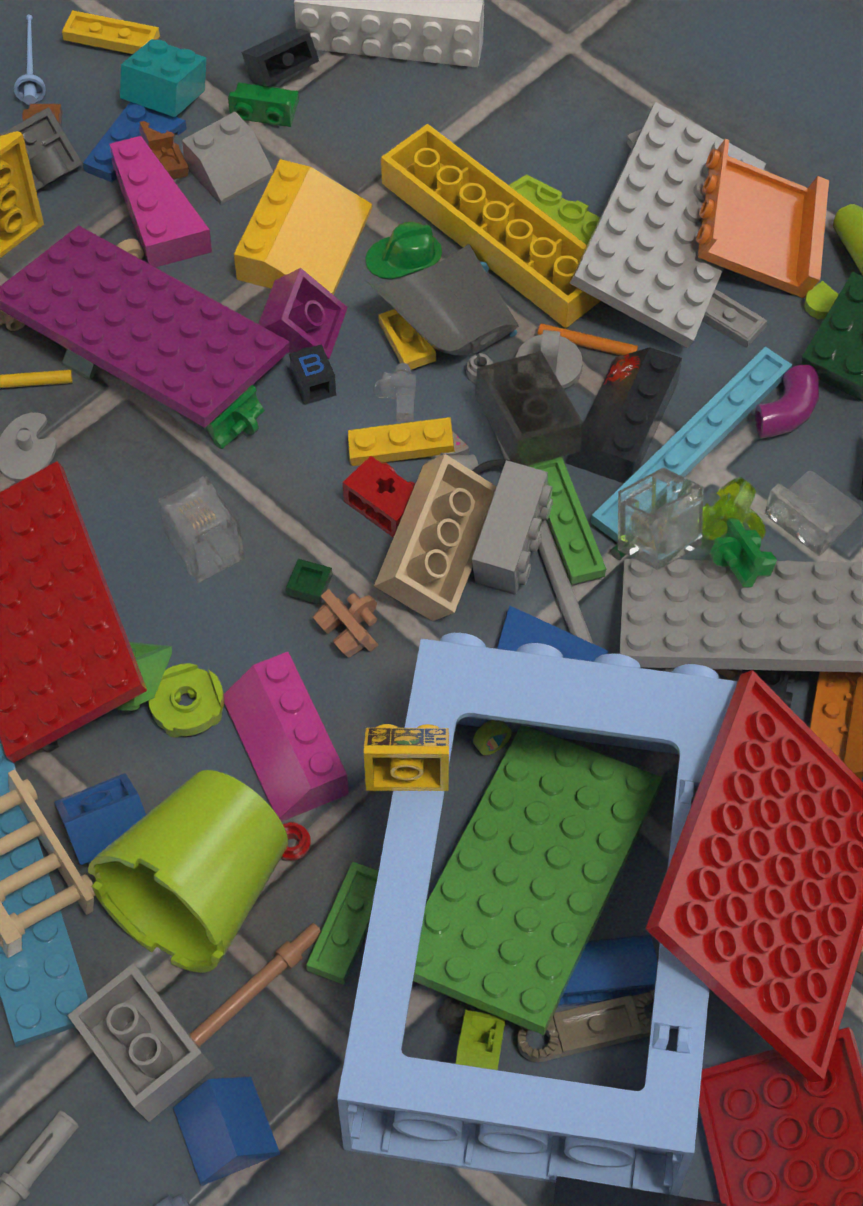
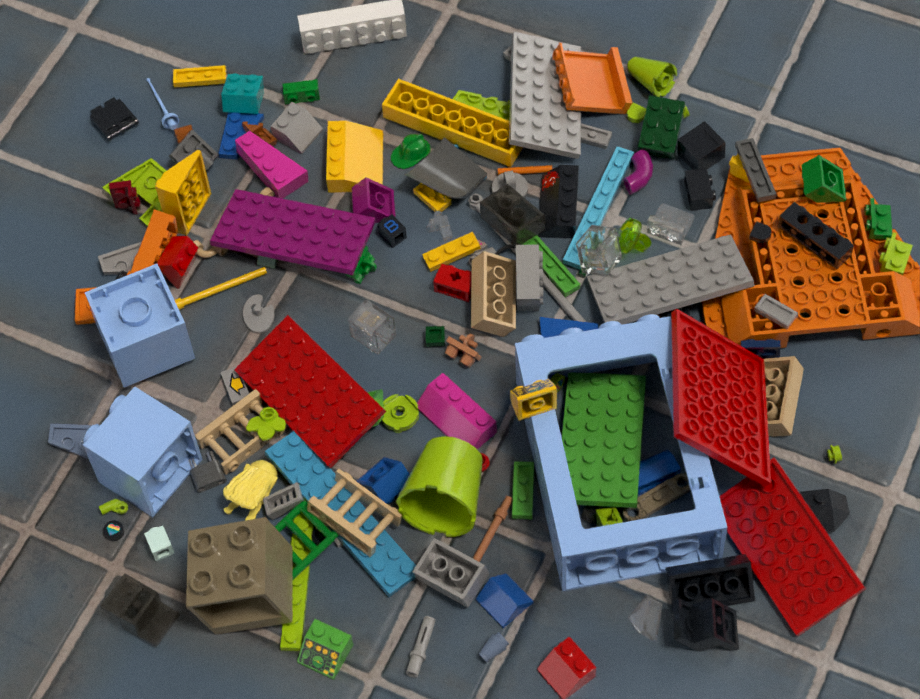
camera: 15 degrees left, 0 degrees up
(280, 56) = (300, 63): black brick -> none
(742, 554) = (645, 255): green hips -> none

